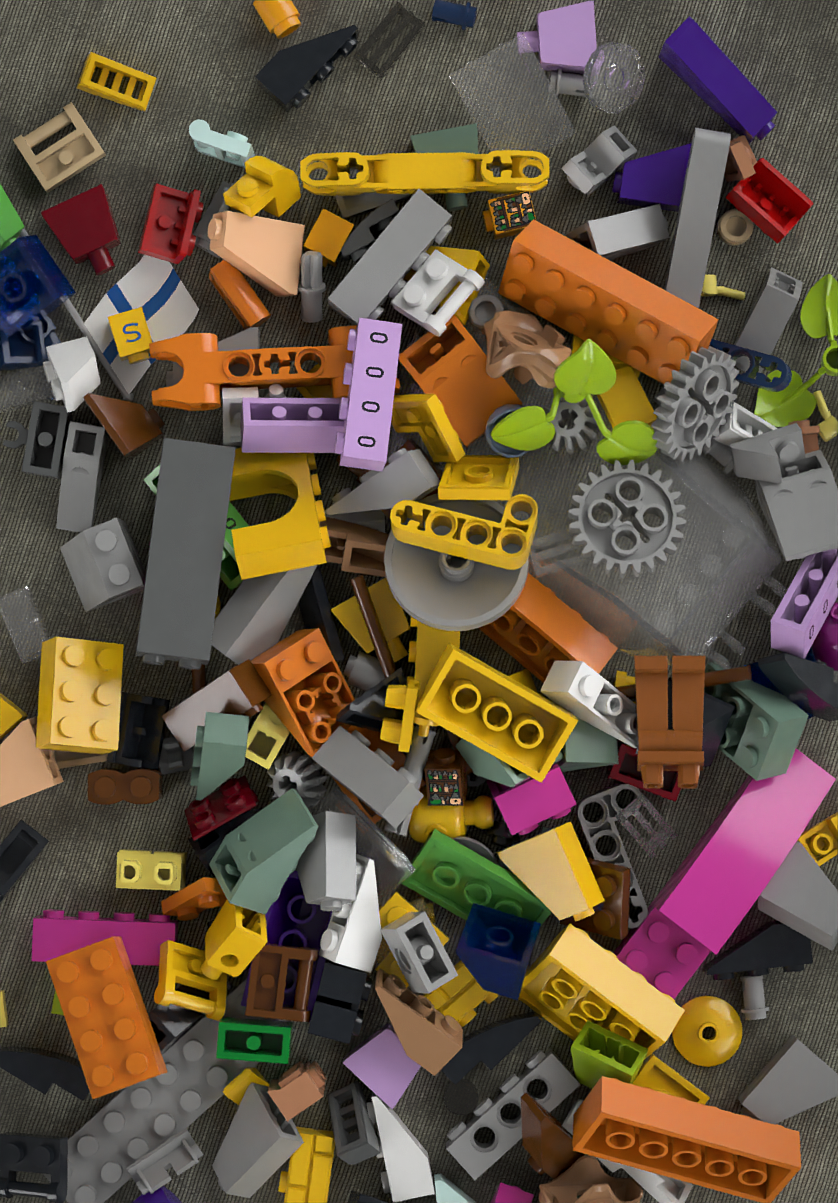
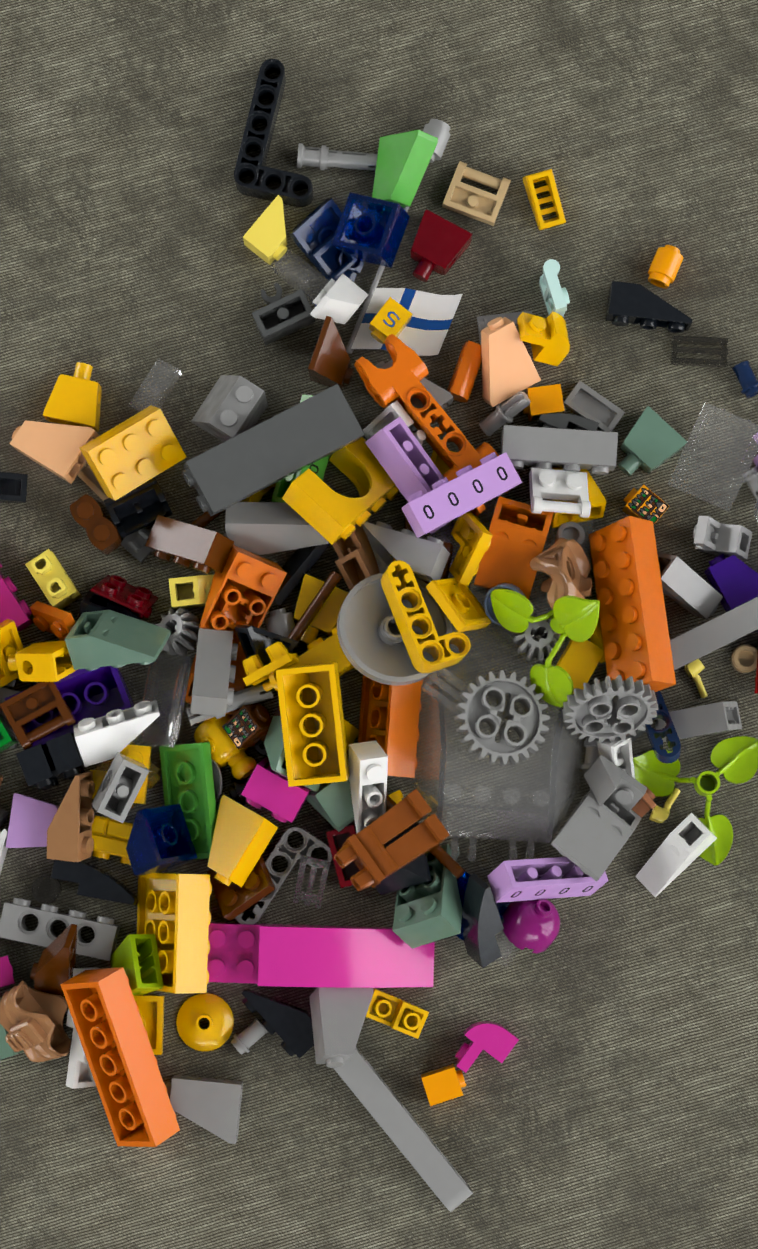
camera: 55 degrees right, 5 degrees down
(81, 476) = (277, 354): light grey slope -> none
(170, 224) = (478, 295): red bracket -> none
(218, 751) = (160, 564): sand green slope -> none
(329, 862) = (138, 686): light grey slope -> none
(425, 171) = (634, 435): yellow piece -> none

